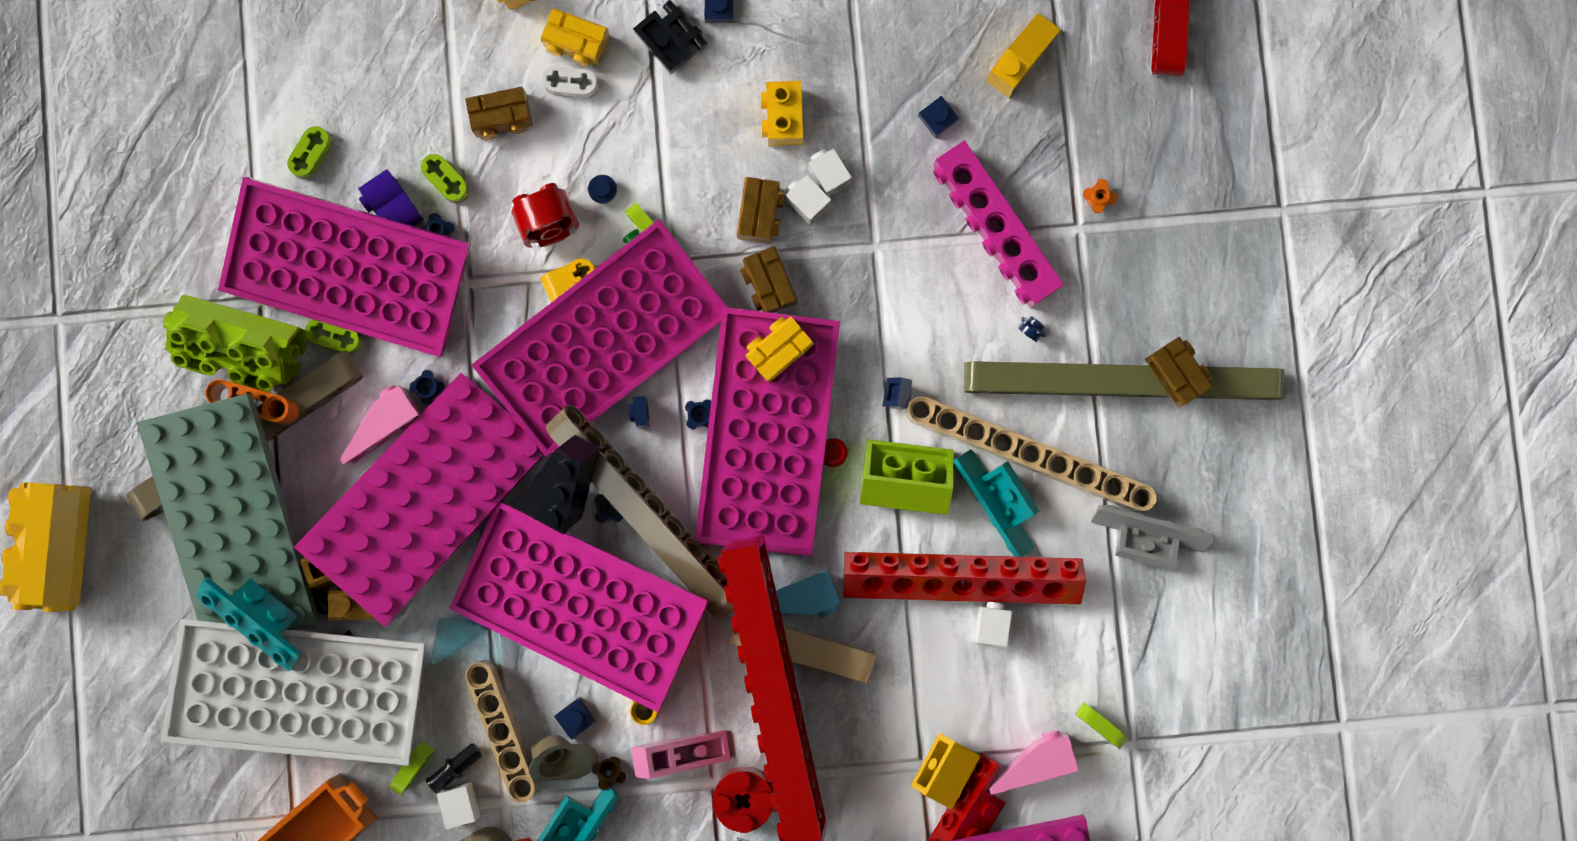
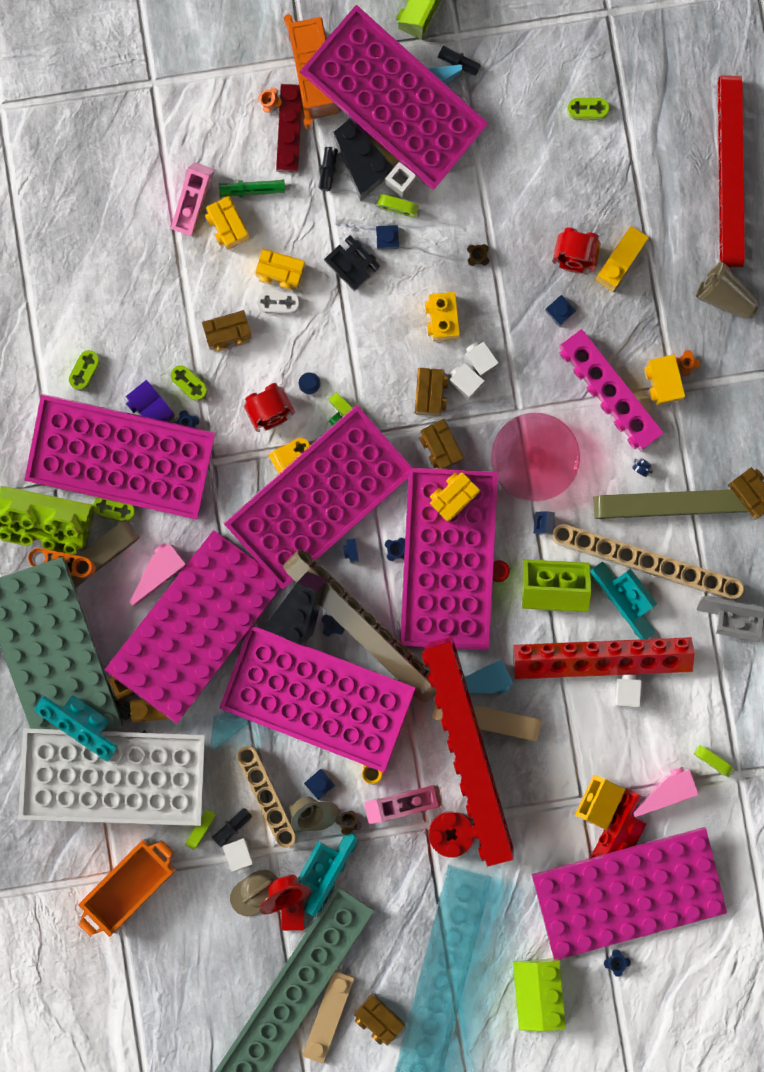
camera: 10 degrees left, 0 degrees up
(418, 387) = (194, 542): dark blue plate -> none
(830, 30) = (482, 250): none -> dark brown plate
(891, 305) = (535, 457): none -> clear pink dish
(965, 38) = (576, 250): none -> red brick
(1069, 215) = (664, 380): none -> yellow brick
(1160, 106) = (727, 292): none -> dark tan cone

